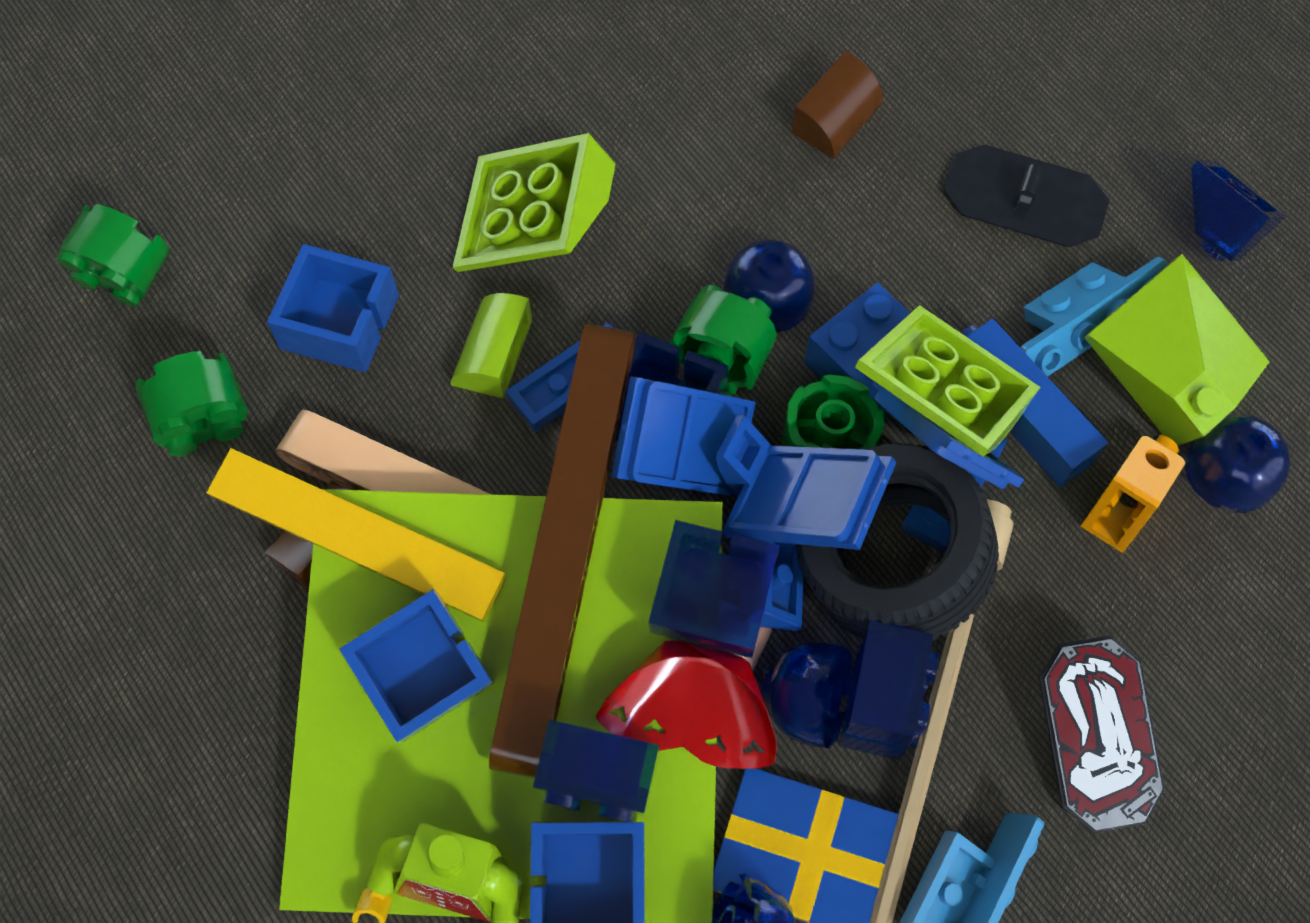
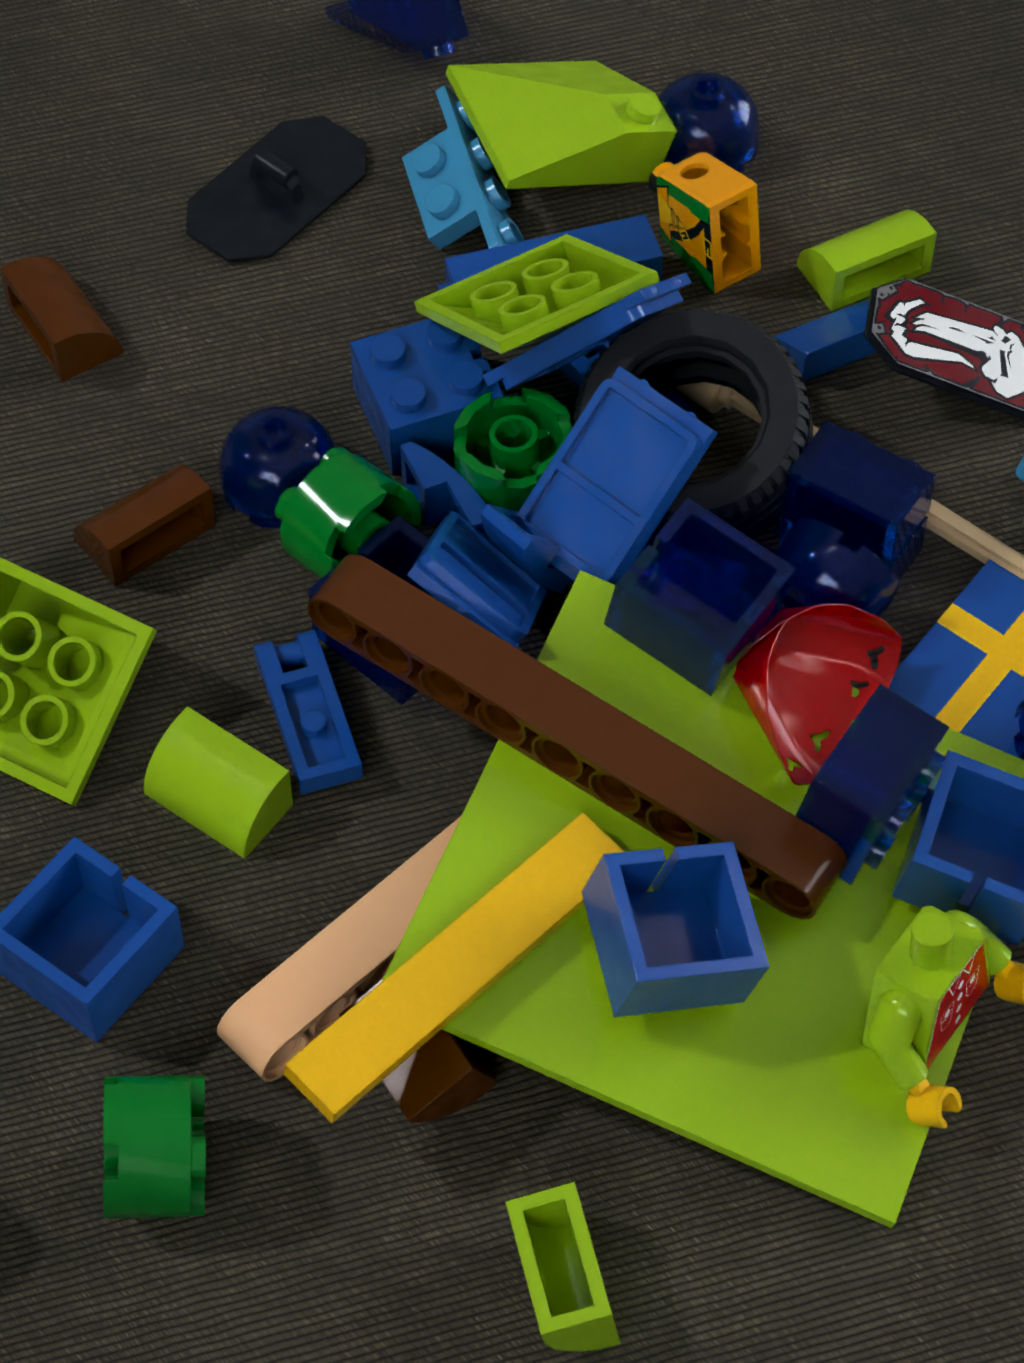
camera: 70 degrees left, 10 degrees down
(176, 690) = (562, 1270): none -> lime brick
(685, 224) = (148, 524): none -> reddish brown brick
(783, 386) = (439, 487): none -> blue slope
(1065, 619) = (829, 341): none -> blue slope
(1168, 631) = (869, 257): none -> lime brick

